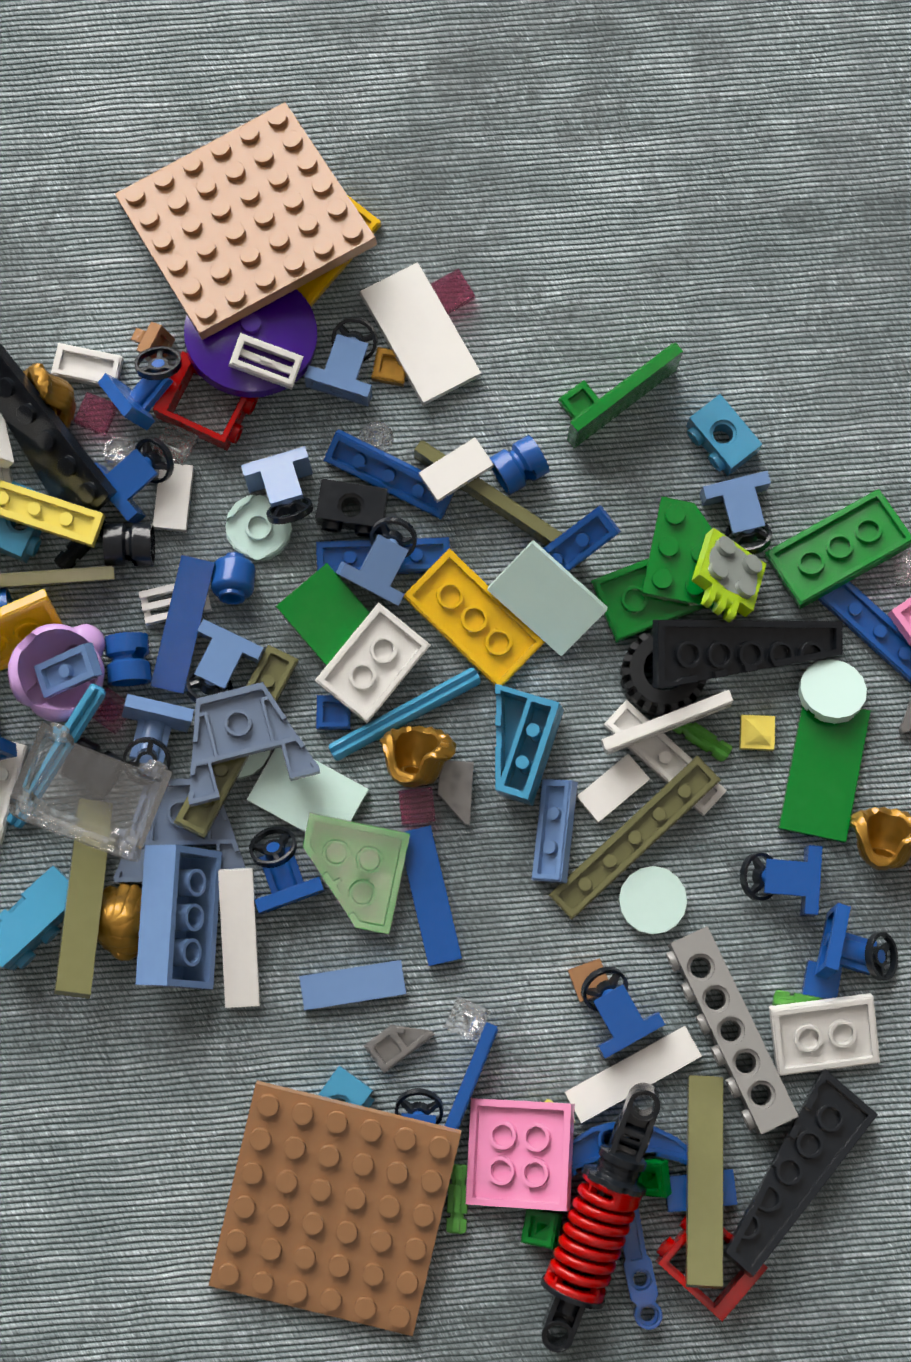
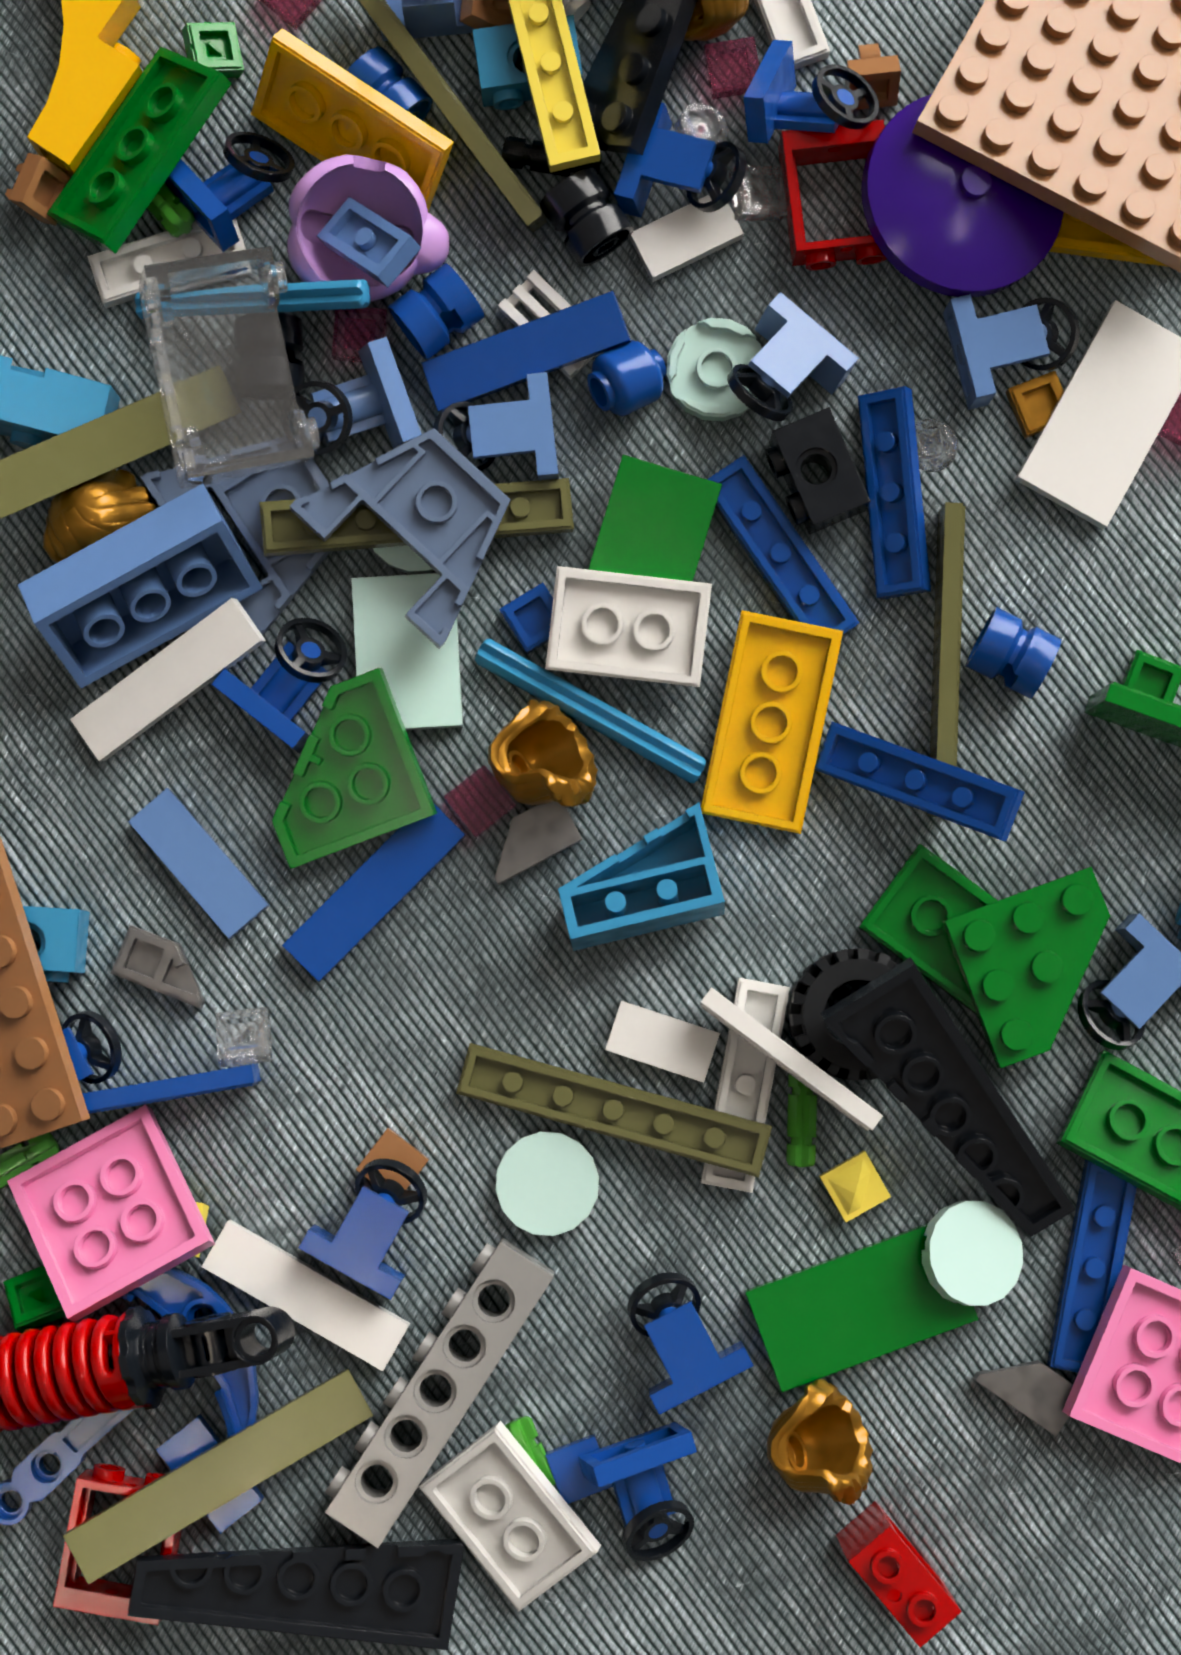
camera: 60 degrees right, 5 degrees up
(261, 373) = (916, 236): white tile -> none
(382, 560) = (769, 554): medium blue piece -> none
(456, 469) = (952, 573): white tile -> none
(547, 598) = (857, 800): light aqua tile -> none
(554, 831) = (557, 999): medium blue tile -> none
(656, 1178) = (187, 1408): green tile -> none
(728, 576) = (1037, 1021): piece -> none

